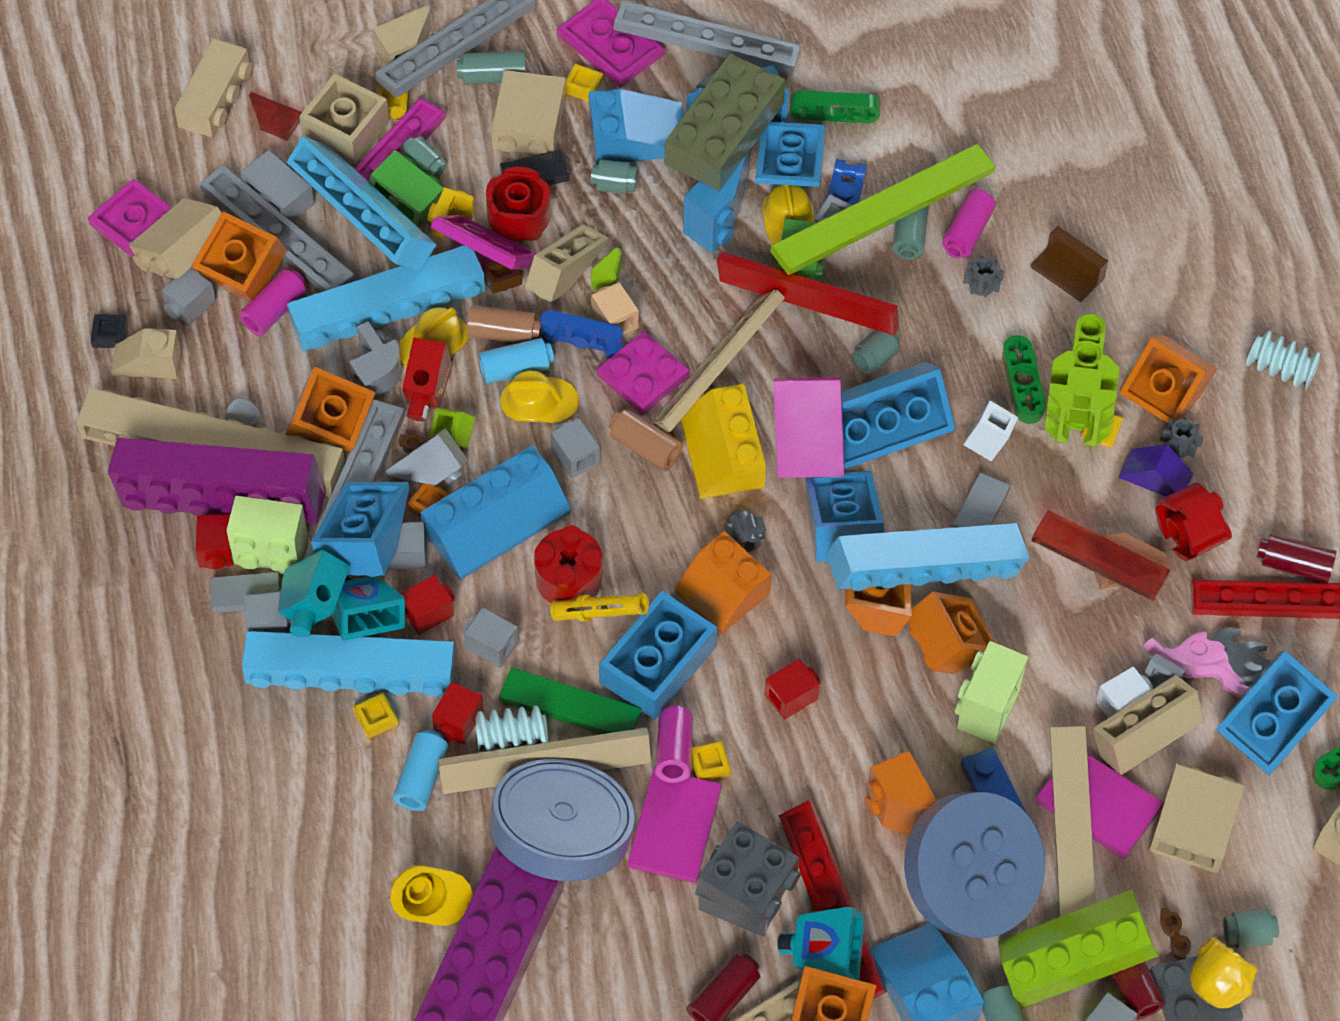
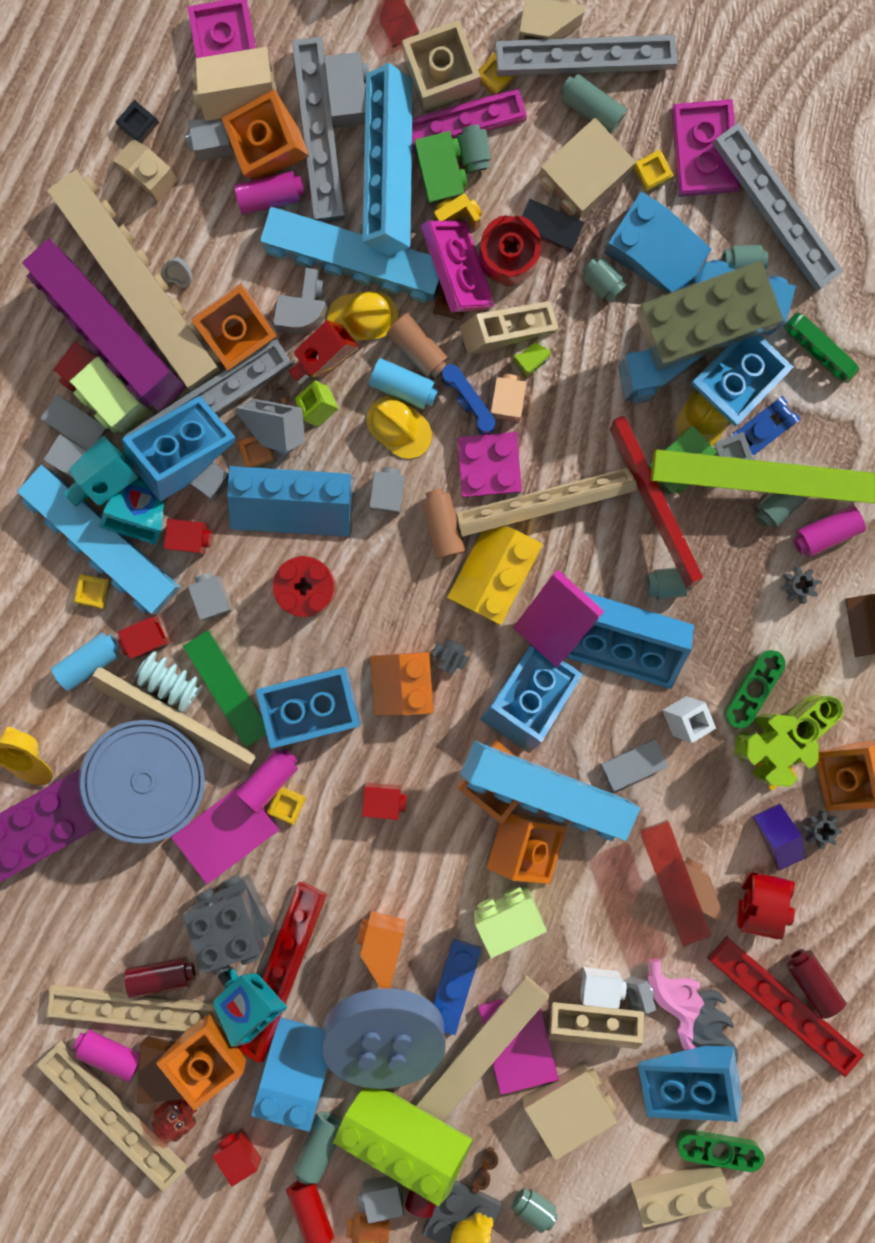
camera: 40 degrees right, 30 degrees up
(567, 609) = (289, 631): yellow pin -> none

